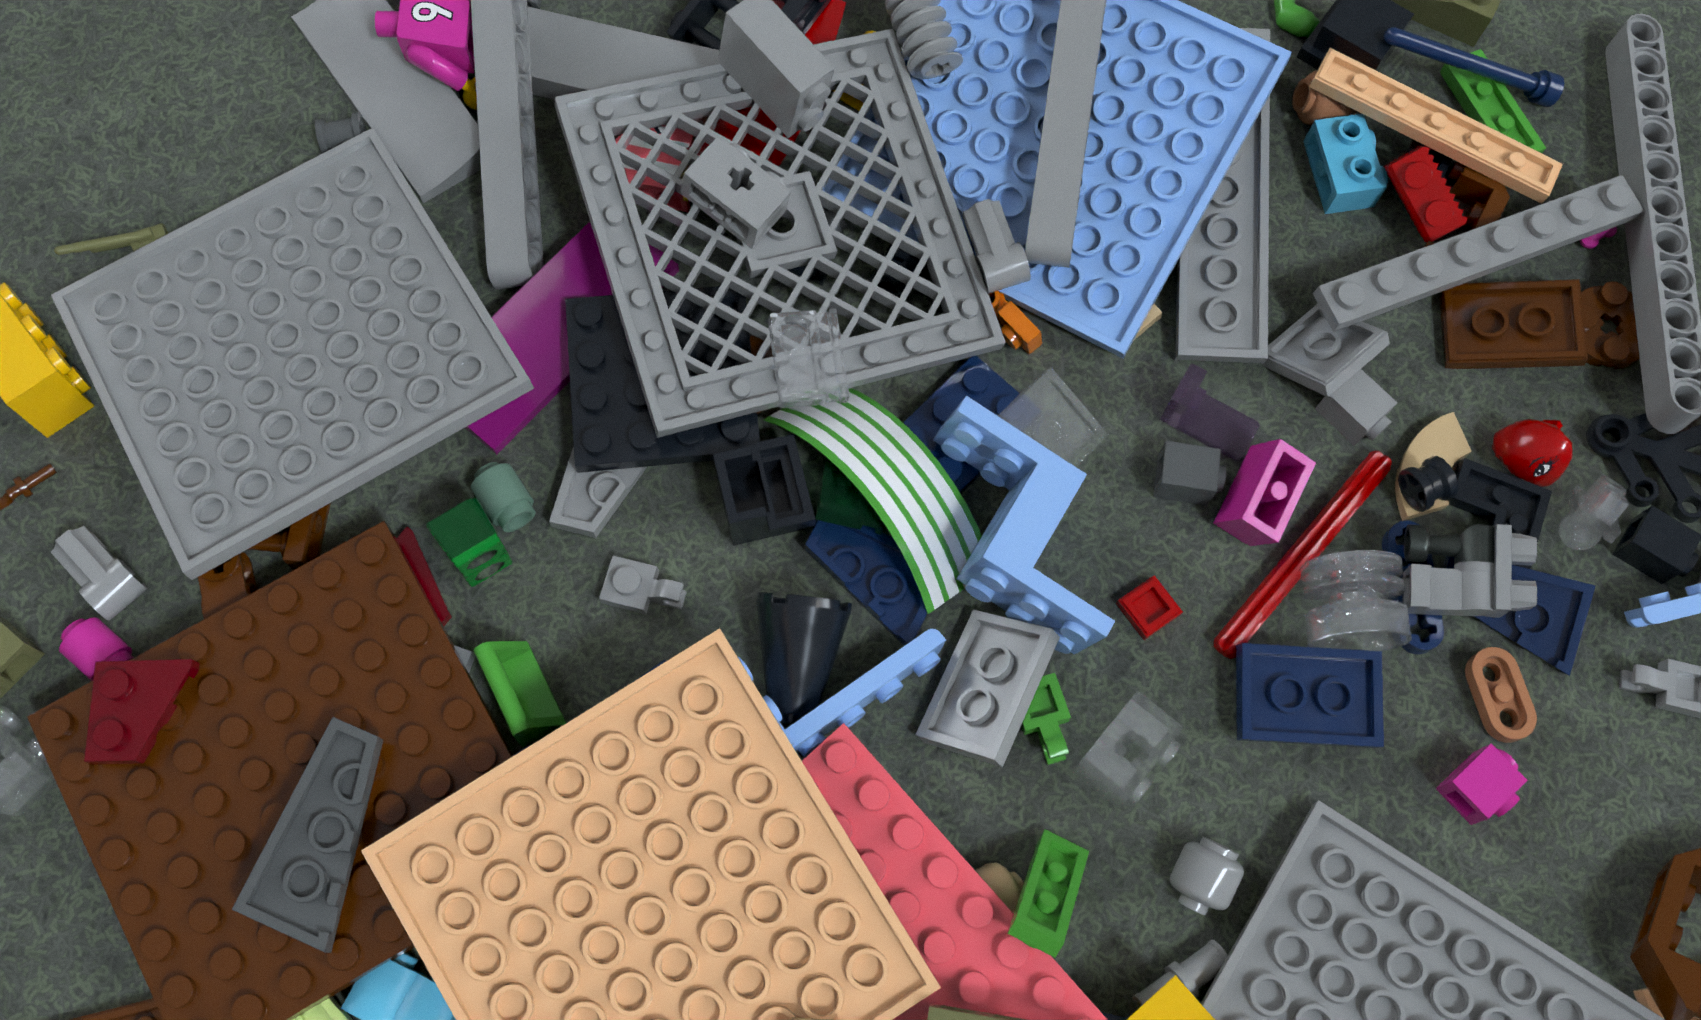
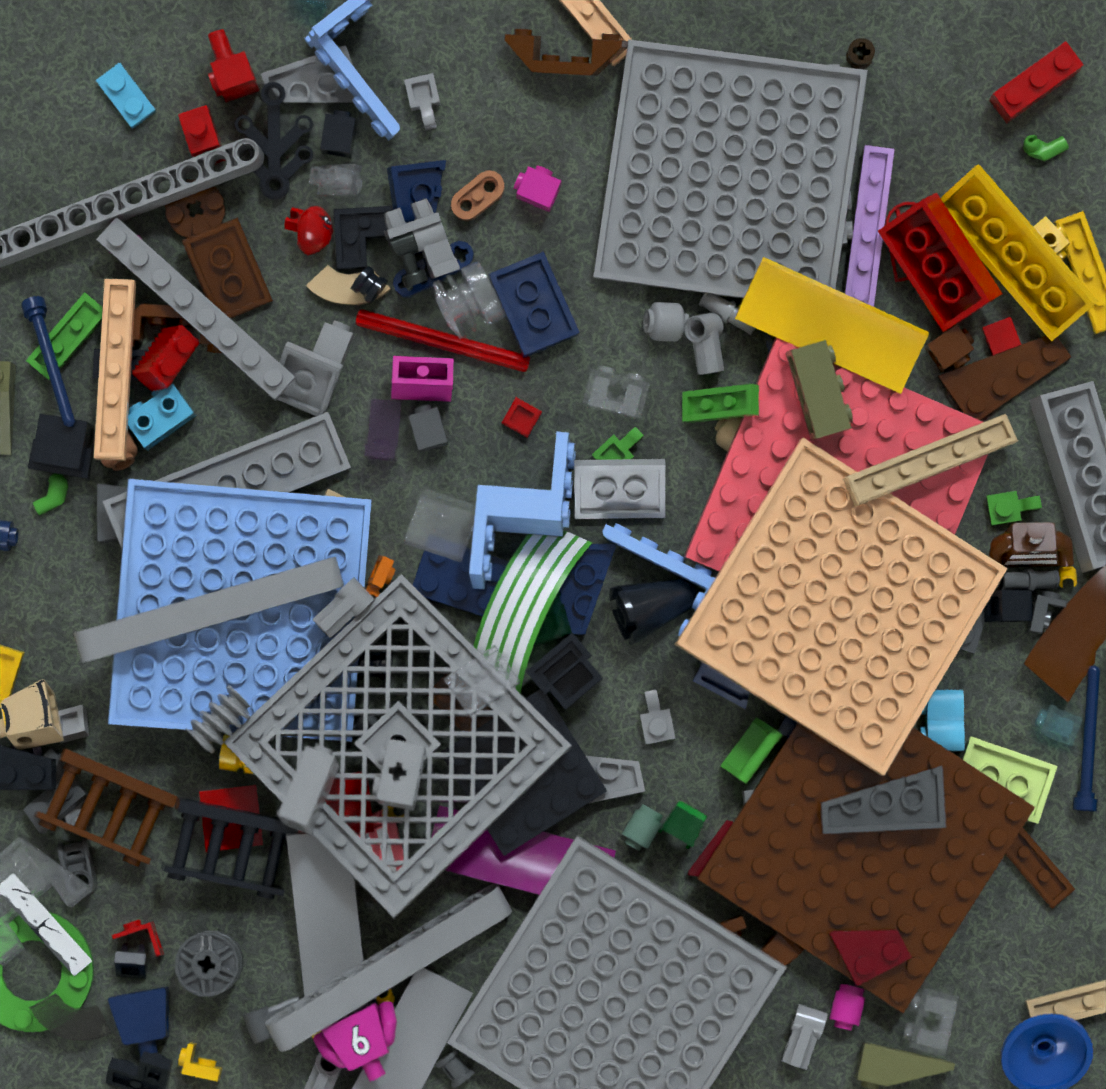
camera: 105 degrees left, 15 degrees up
(1166, 923) = (706, 341): none -> light grey piece

